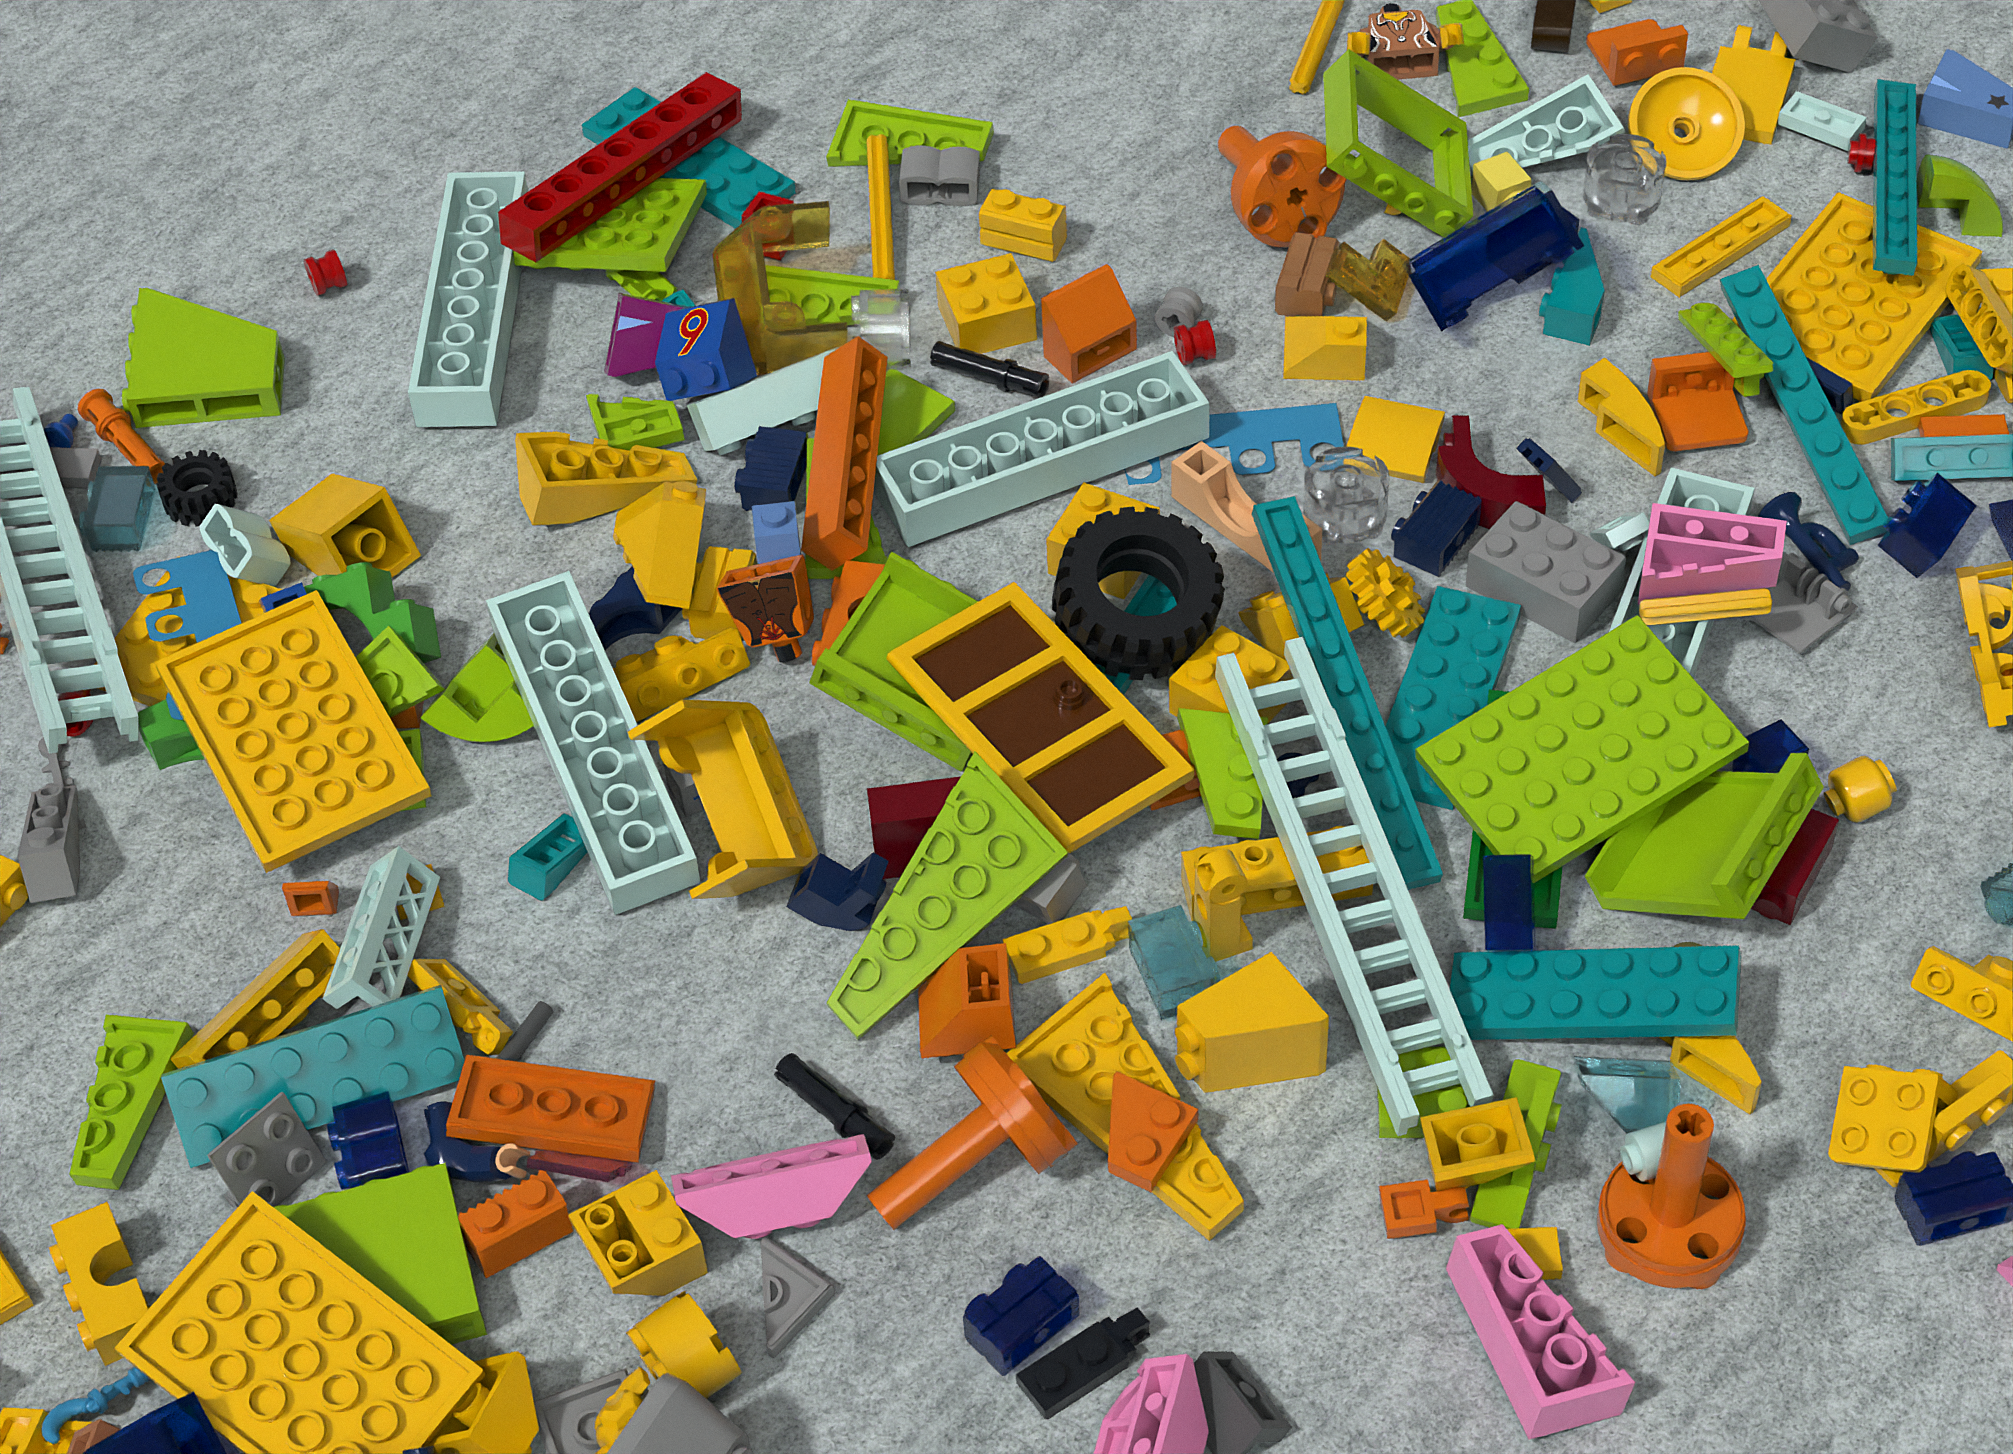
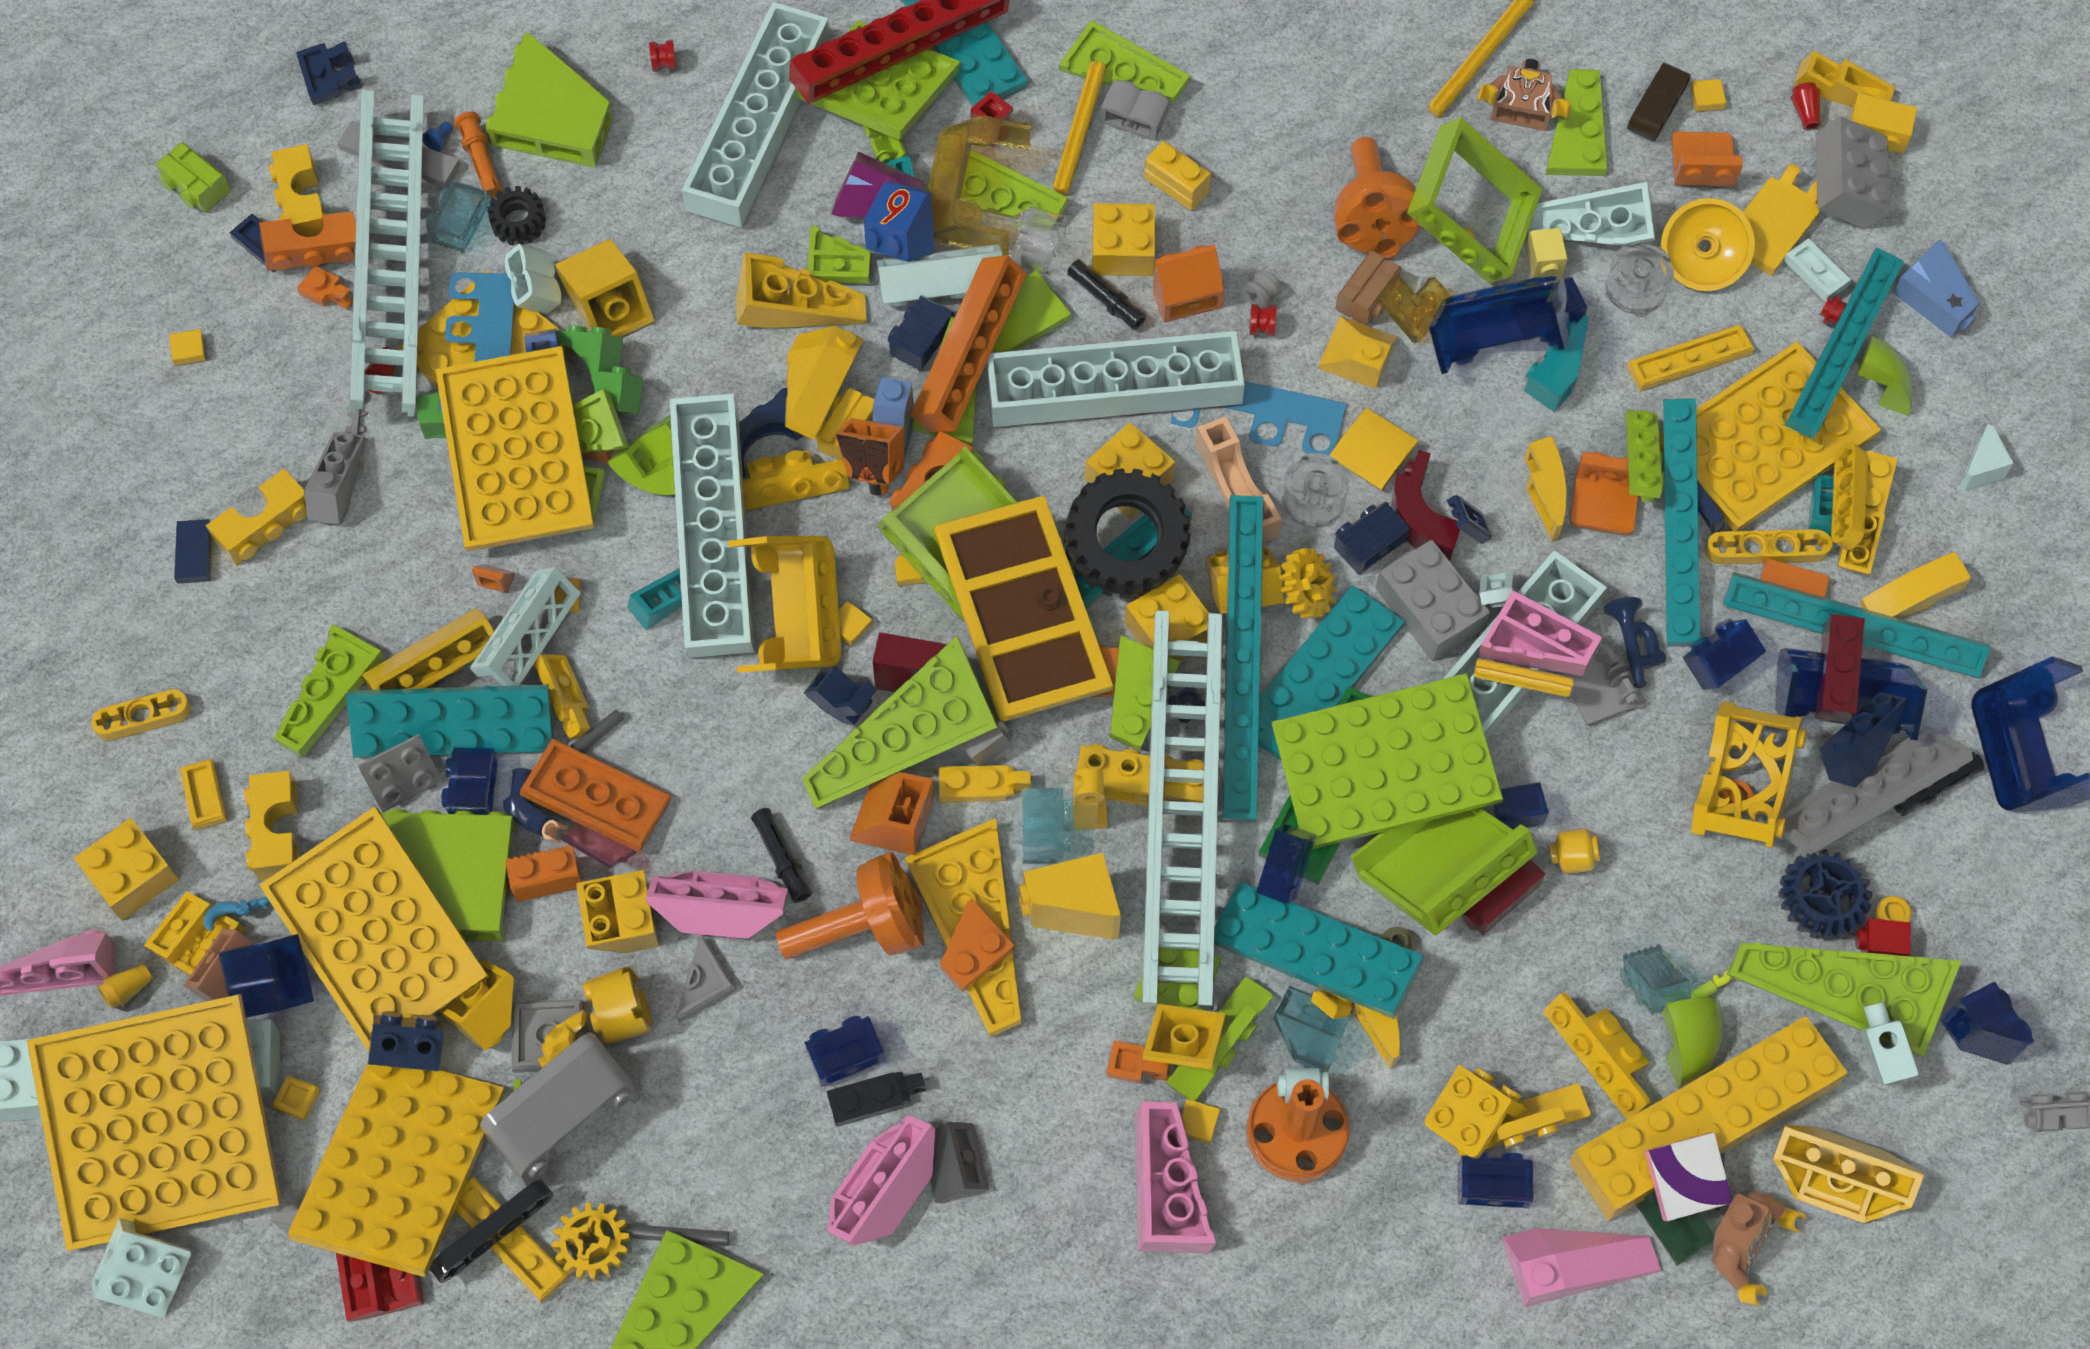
camera: 15 degrees right, 15 degrees up
(819, 810) = (852, 623): none -> yellow tile
(866, 734) = (906, 573): none -> yellow tile
(1642, 1053) = (1331, 1004): none -> yellow tile

